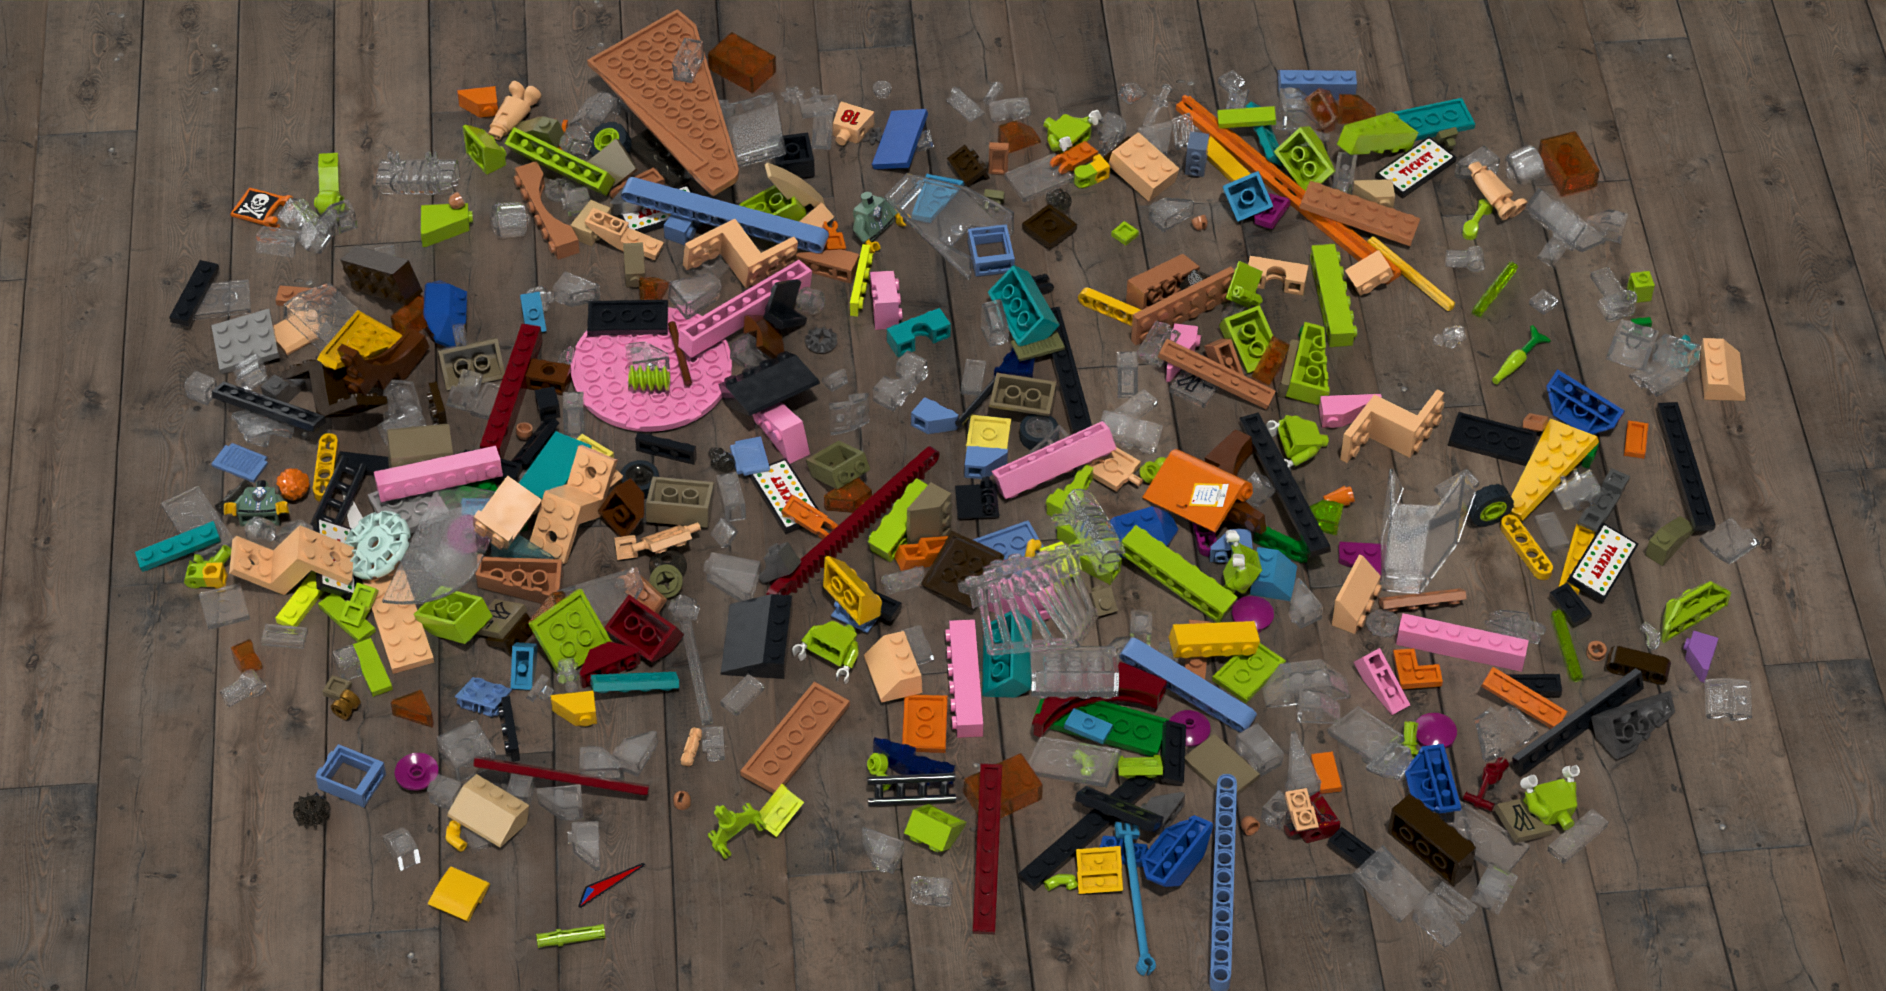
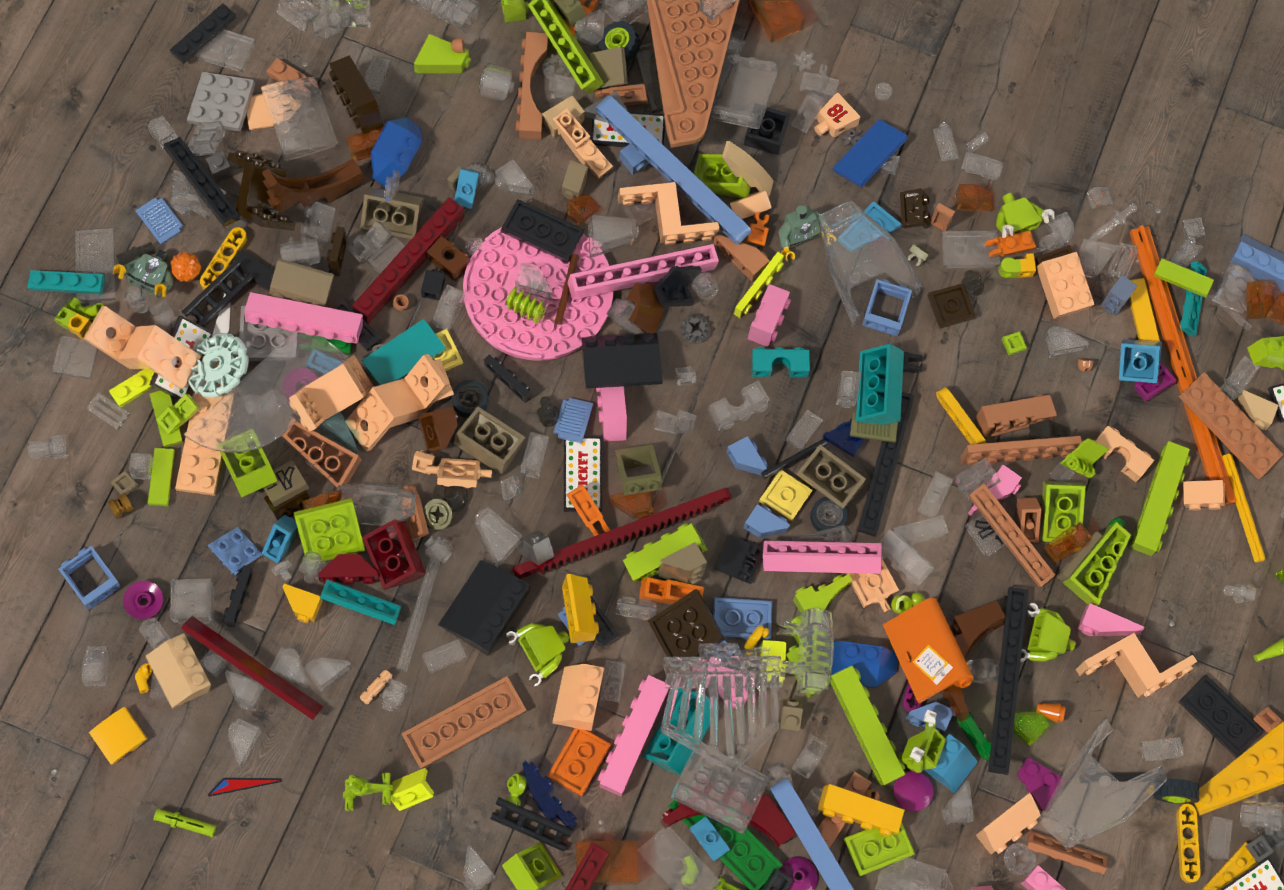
camera: 20 degrees right, 20 degrees up
(245, 657) = (65, 420): clear orange panel -> none
(311, 810) = (36, 594): clear smoke gear -> none
(362, 334) = (305, 154): yellow wing -> none
(413, 708) = (174, 536): clear orange slope -> none
(516, 312) = (453, 179): none -> dark tan tile
(536, 442) = (403, 319): black plate -> none
(686, 801) = (344, 738): nougat hinge -> none
(1305, 157) = (1213, 347): lime slope -> none

